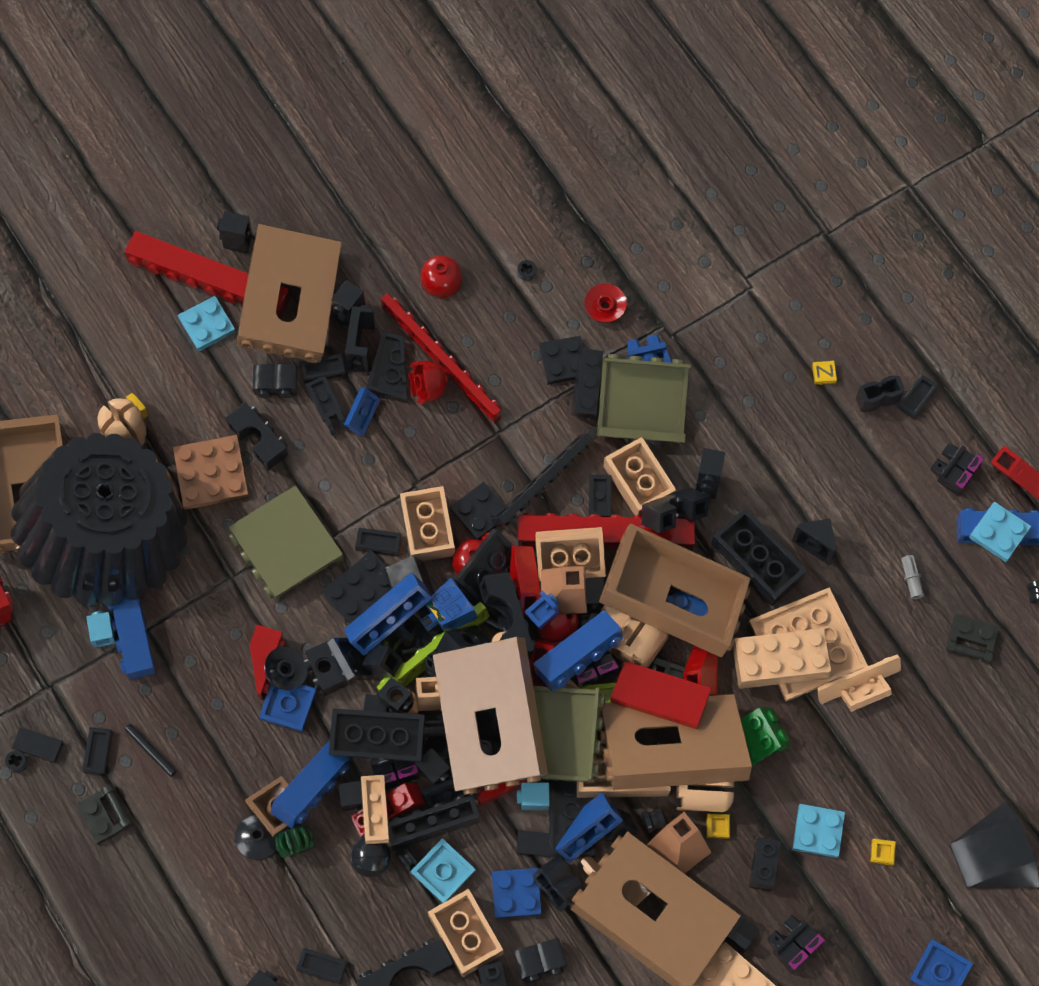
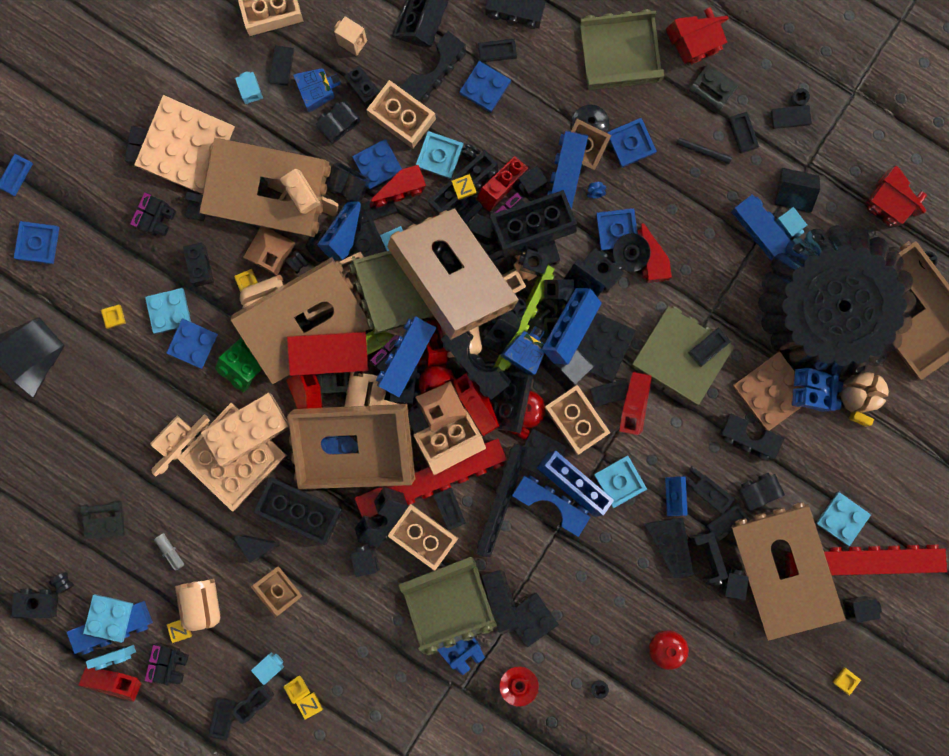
camera: 160 degrees right, 15 degrees up
(73, 664) = (797, 190): none -> black slope
(92, 870) = (697, 36): none -> red piece
(170, 445) = (816, 390): none -> blue hips
(184, 901) = (621, 50): none -> olive panel
(225, 791) = (631, 142): none -> blue plate
(254, 535) = (709, 347): none -> black tile
(283, 181) = (846, 681): none -> yellow tile
(289, 755) = (596, 190): none -> blue plate
(294, 841) = (558, 124): dark green gear -> none
(355, 929) = (485, 86): none -> blue plate
(359, 513) = (635, 404): none -> red slope
(370, 859) = (497, 138): black piece -> none
(374, 809) = (509, 169): light nougat plate -> none
(411, 449) = (620, 481): none -> medium azure plate
(427, 381) = (634, 546): red cylinder -> none
(433, 811) = (464, 187): none -> yellow tile
(437, 354) = (642, 578): red plate -> none
(460, 461) = (575, 484): none -> blue brick
(498, 854) = (404, 183): none -> red slope
(509, 477) = (572, 518): none -> blue arch
(543, 610) = (449, 378): blue bracket -> none
(617, 876) = (300, 191): none -> light nougat brick
(805, 781) = (191, 343): none -> blue plate
(814, 490) = (276, 591): none -> medium nougat slope
(831, 391) = (296, 689): none -> yellow tile
(852, 422) = (268, 668): none -> medium azure brick
(900, 508) = (198, 605): none -> light nougat cylinder
(931, 497) = (177, 632): none -> yellow tile
(1011, 494) = (105, 660): none -> medium azure plate

